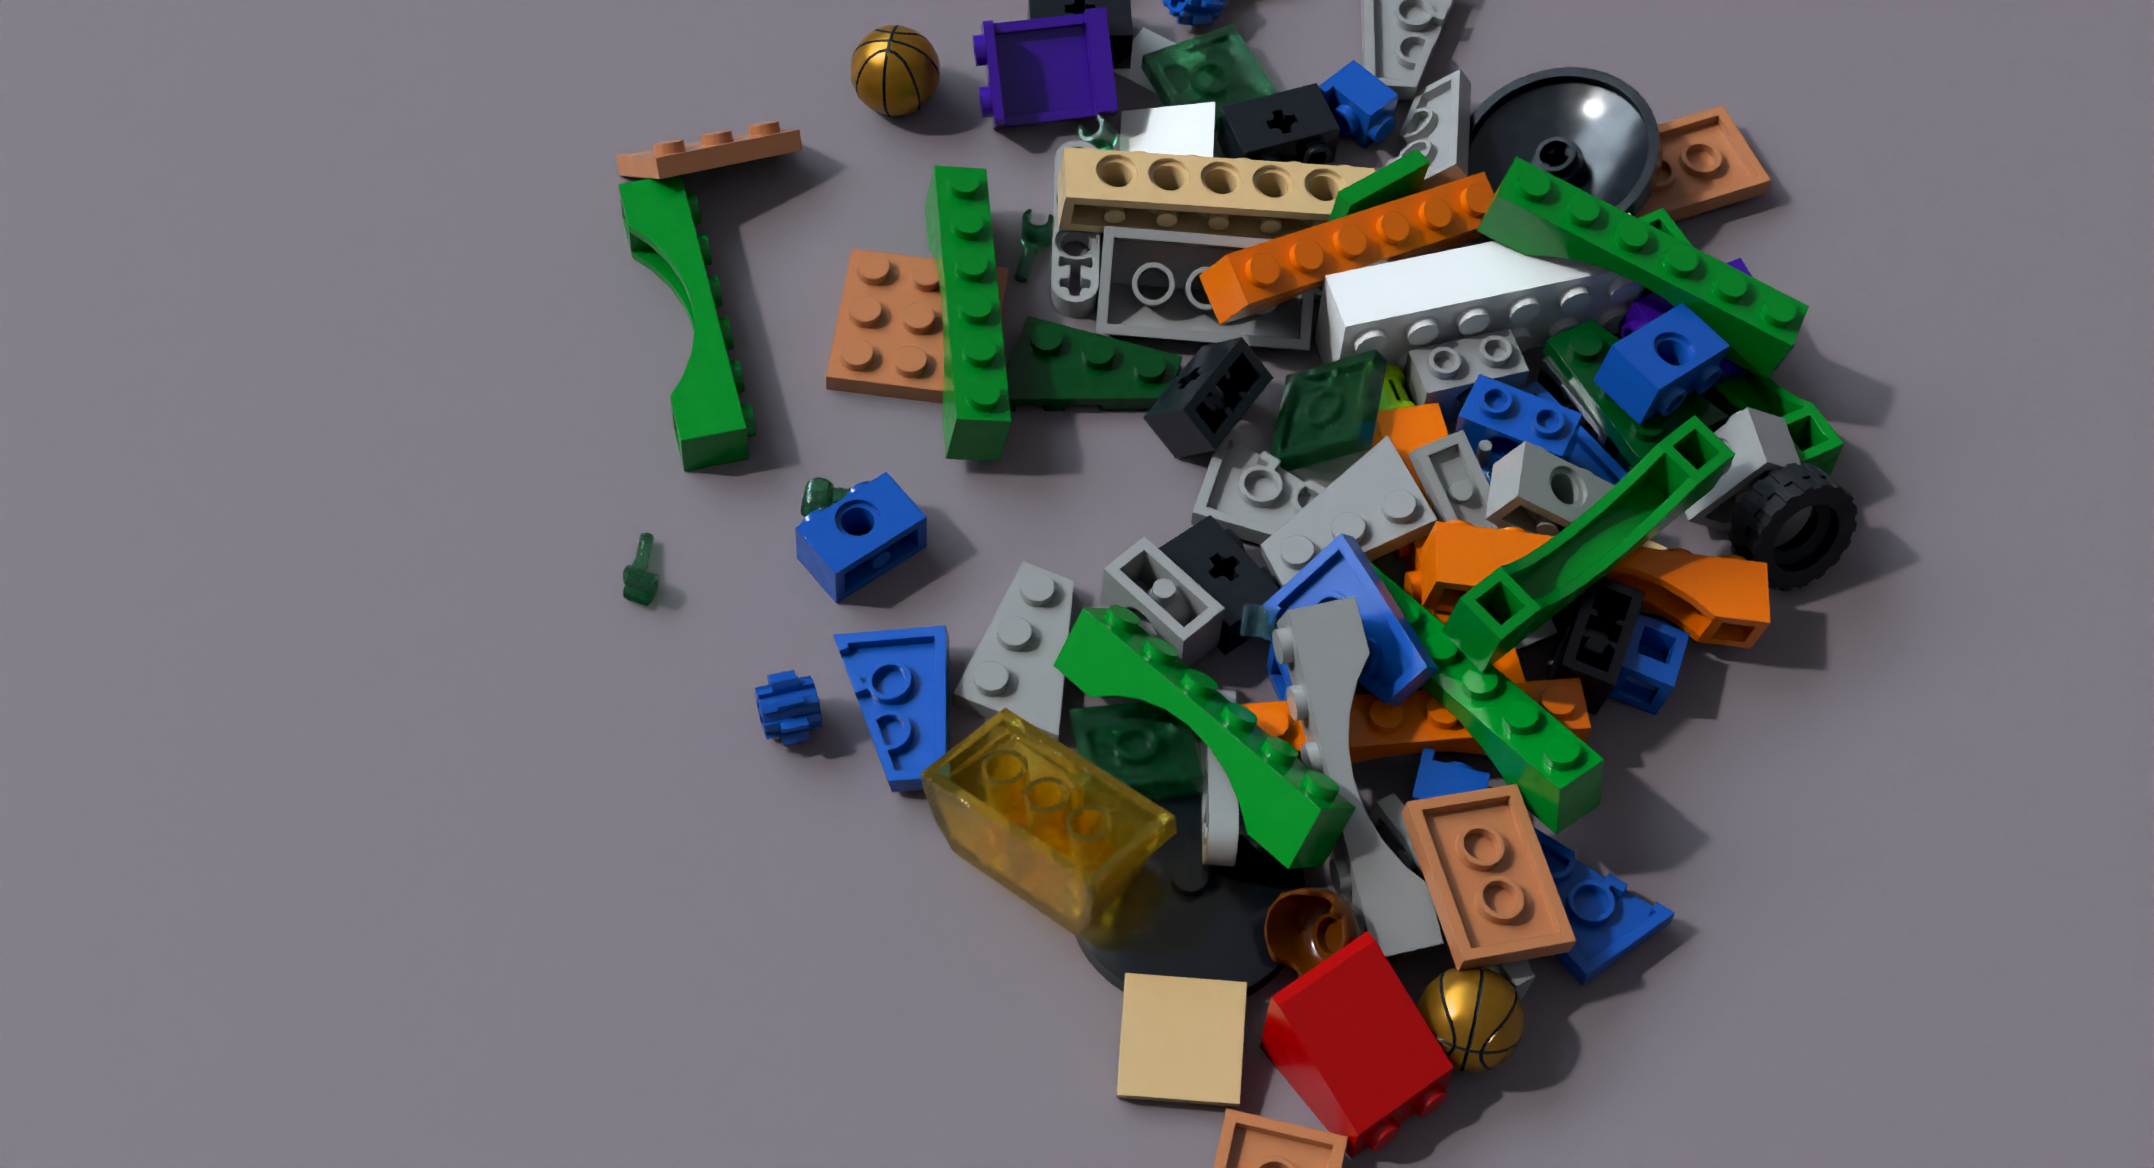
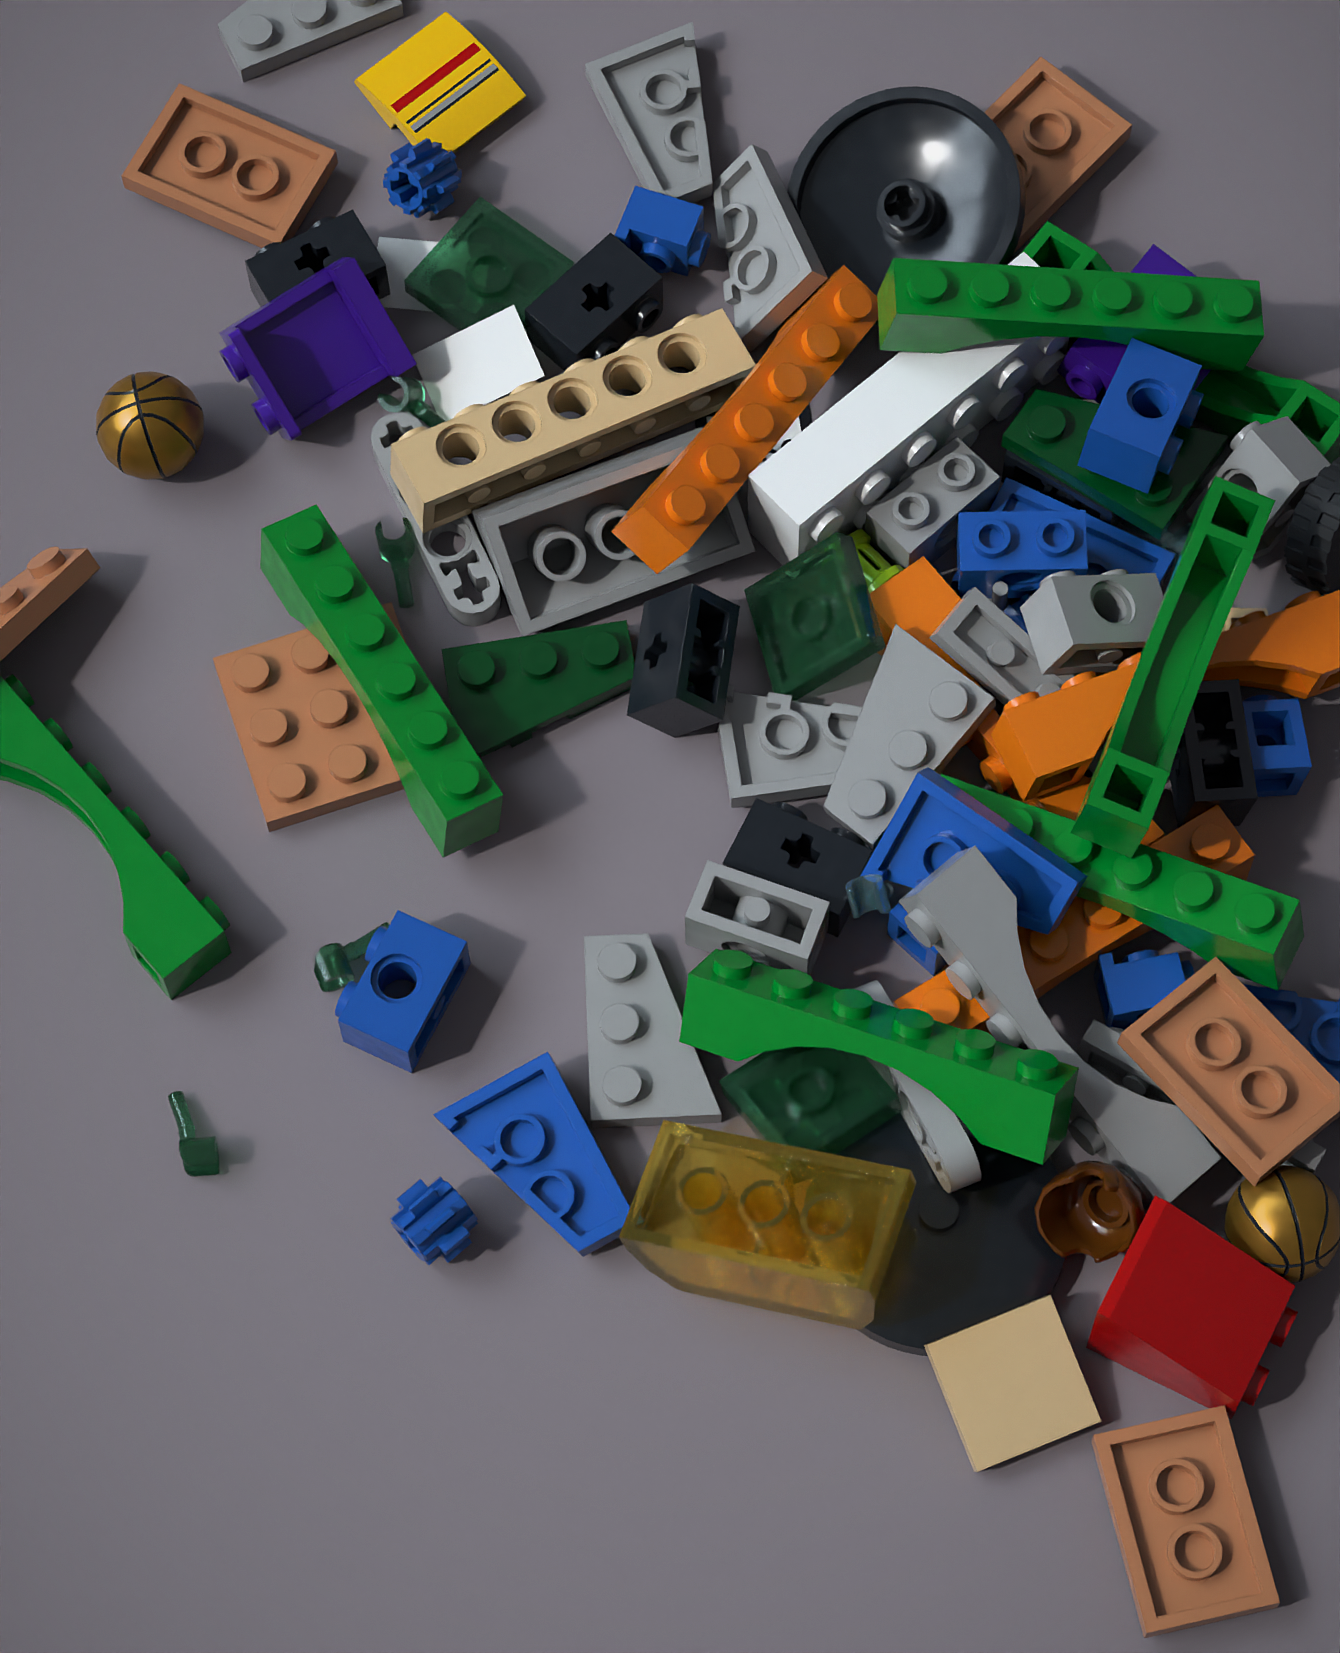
camera: 20 degrees left, 10 degrees up
(1383, 186) = (748, 341): green tile -> none

